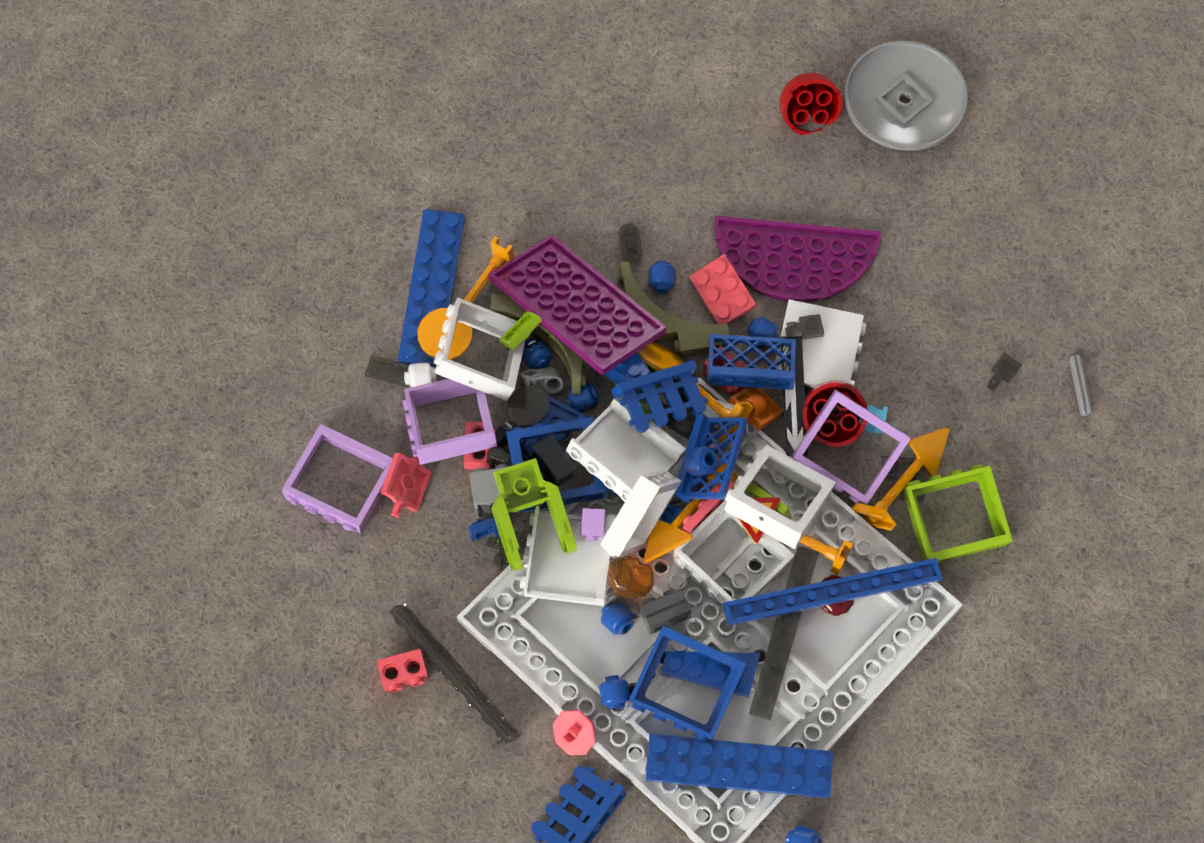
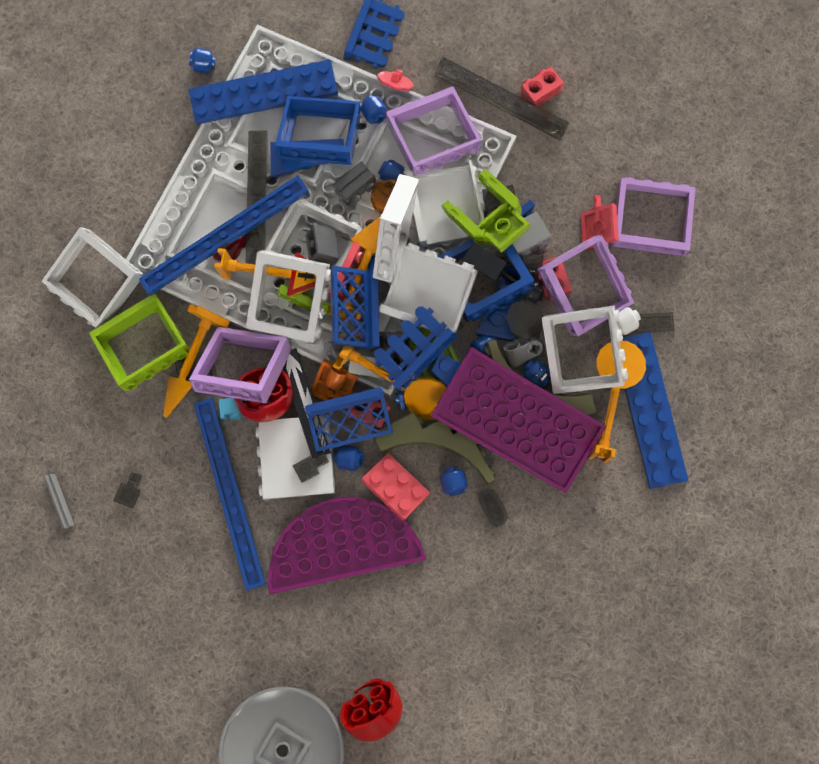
camera: 165 degrees right, 10 degrees up
(520, 330) = (557, 376): lime plate -> none
(540, 606) = (424, 106): none -> lavender window
(592, 523) = (436, 230): lavender brick -> none
(700, 461) = (361, 294): blue head -> none
(726, 541) = (322, 244): none -> dark grey brick
(897, 337) = (229, 494): none -> blue plate
(972, 619) = (65, 260): none -> white window

